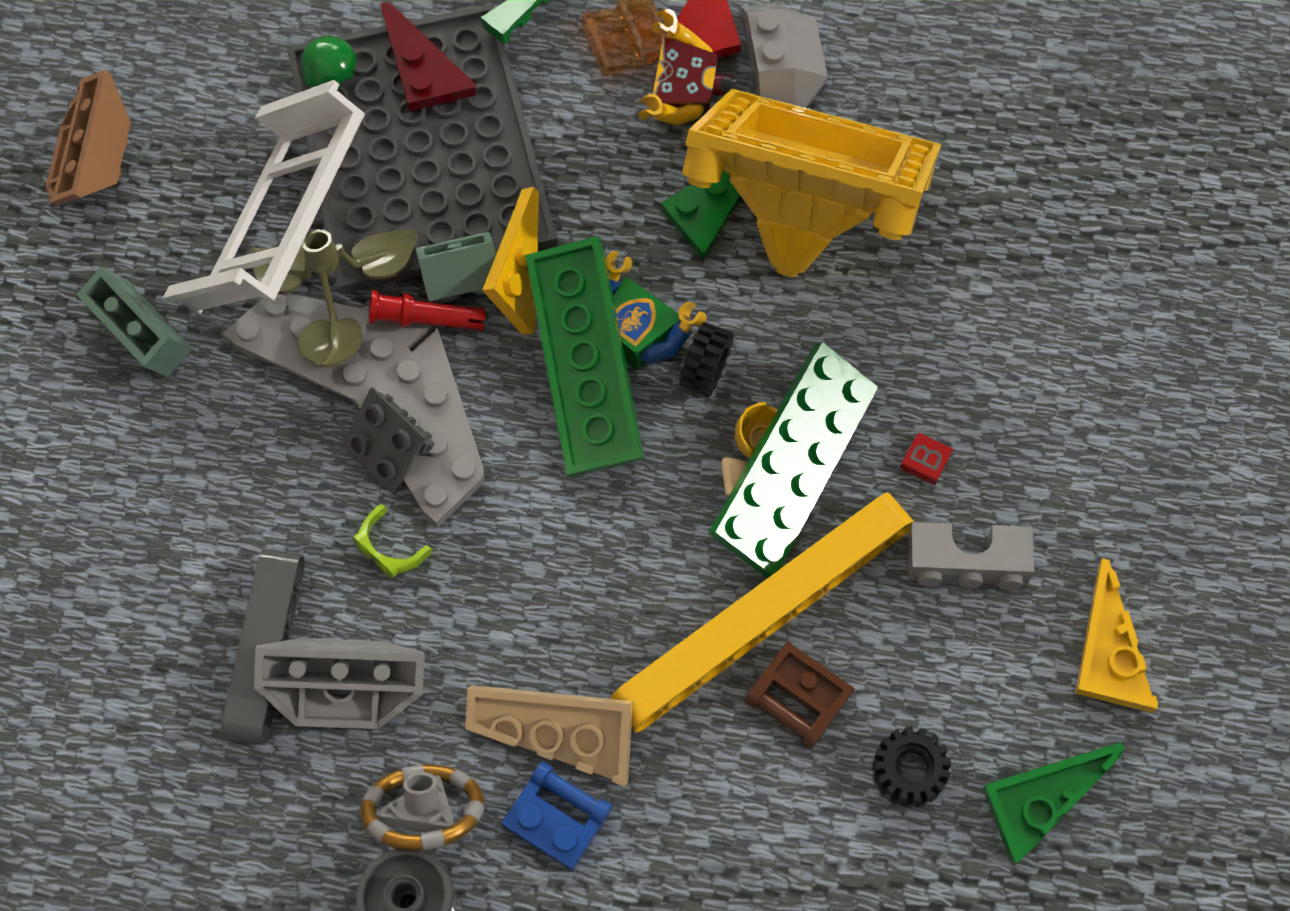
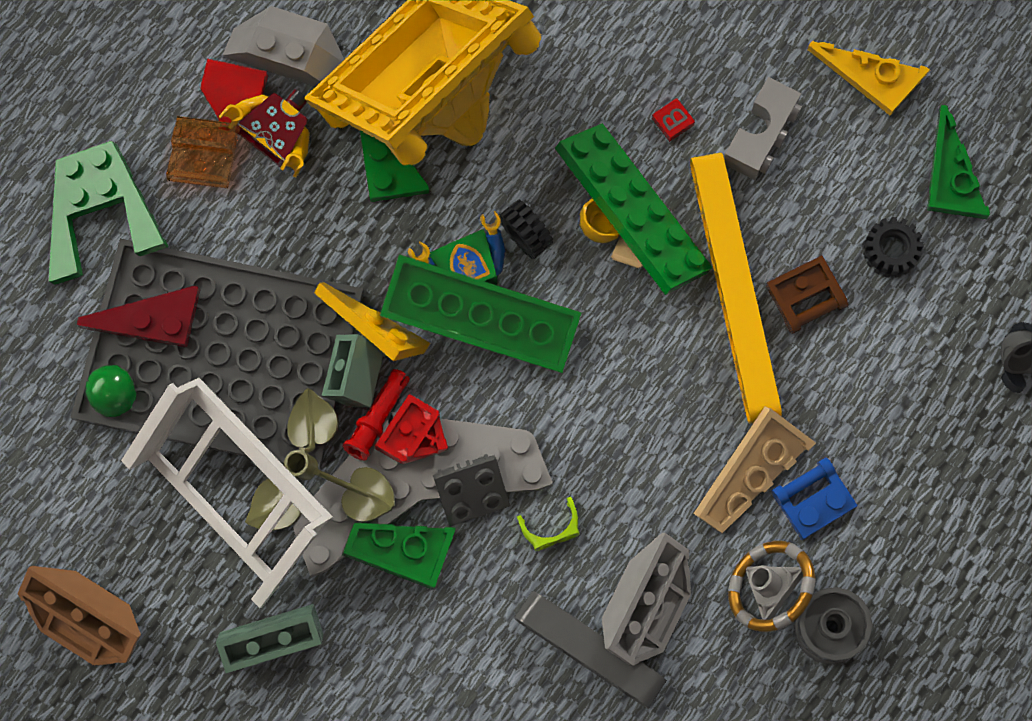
camera: 60 degrees left, 10 degrees up
(287, 405) = (401, 550): none -> green wing
(421, 354) = (413, 433): none -> red slope

